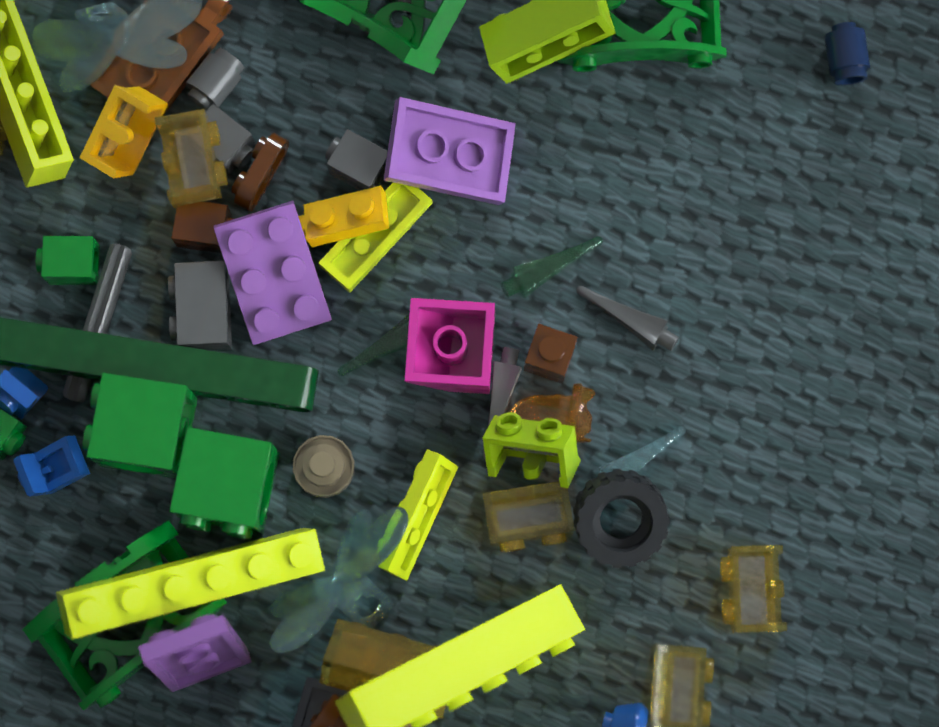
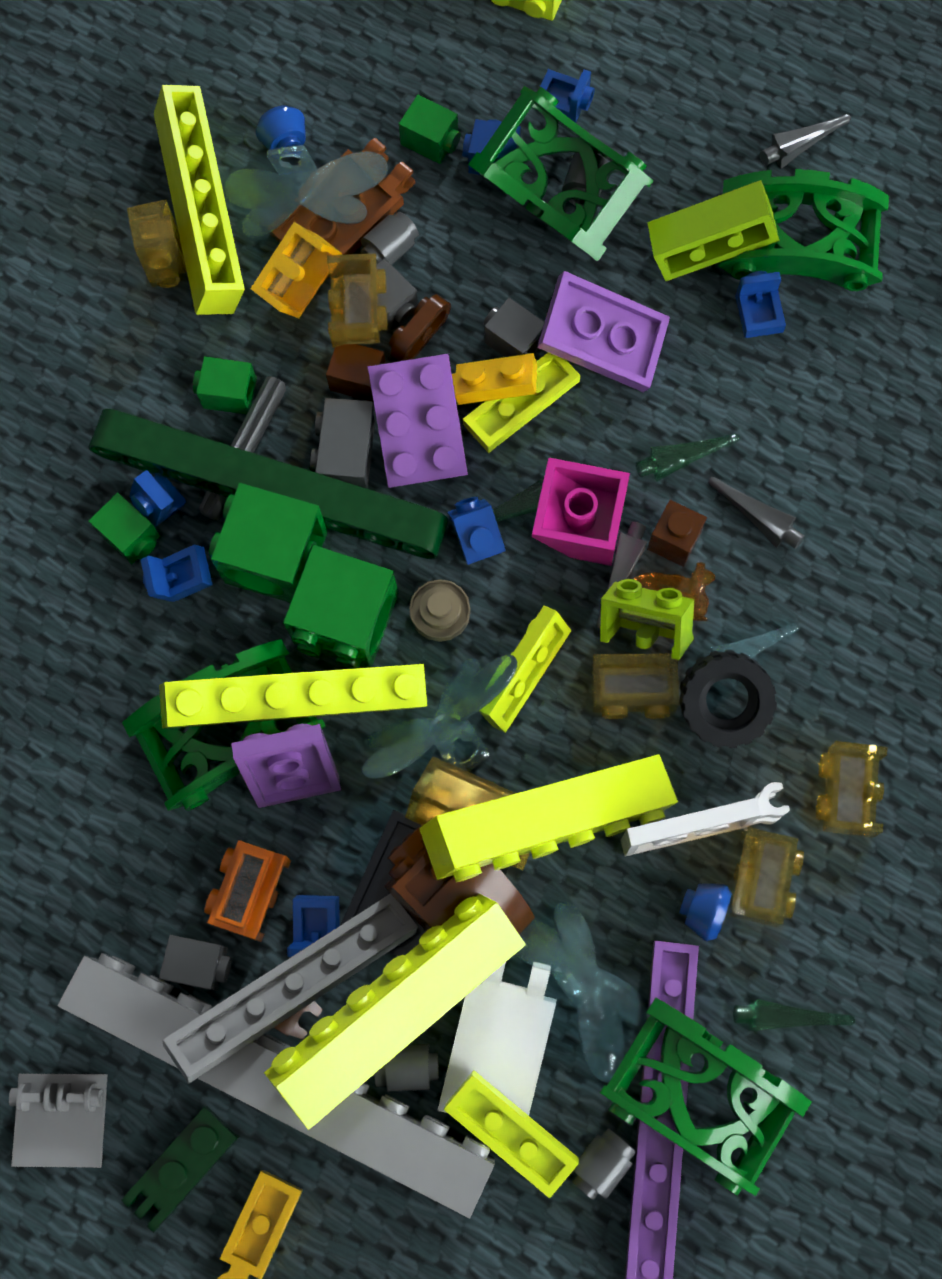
camera: 10 degrees right, 5 degrees down
(348, 376) = (476, 529): none -> blue bracket
(606, 97) = (760, 304): none -> blue bracket
(614, 647) = (704, 823): none -> white tile

